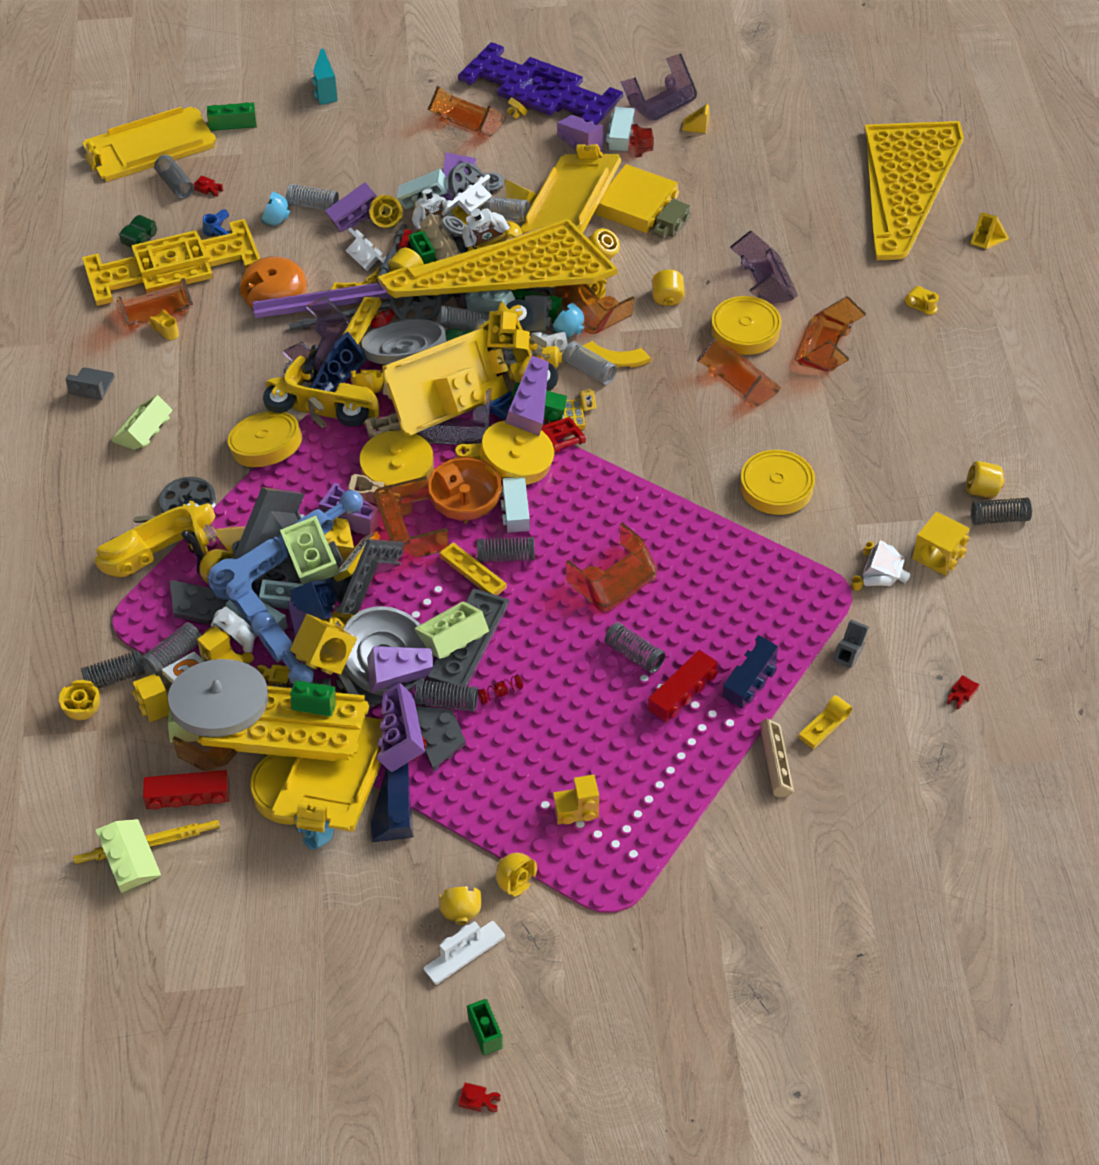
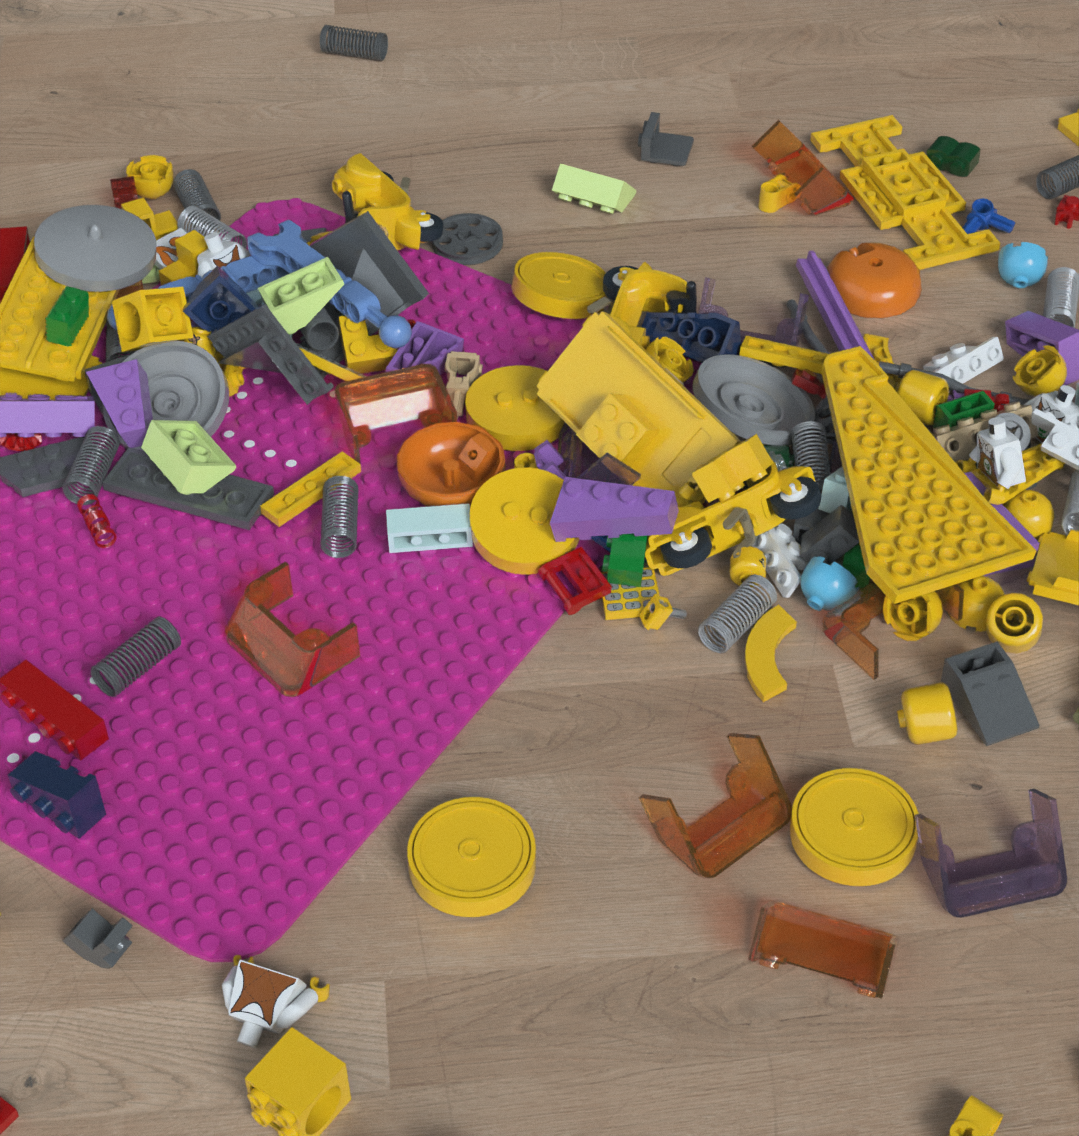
camera: 90 degrees right, 5 degrees down
(104, 718) = (123, 190): none -> clear red brick
(454, 441) = (548, 459): none -> medium lavender piece
(644, 262) = (989, 693): none -> dark grey slope

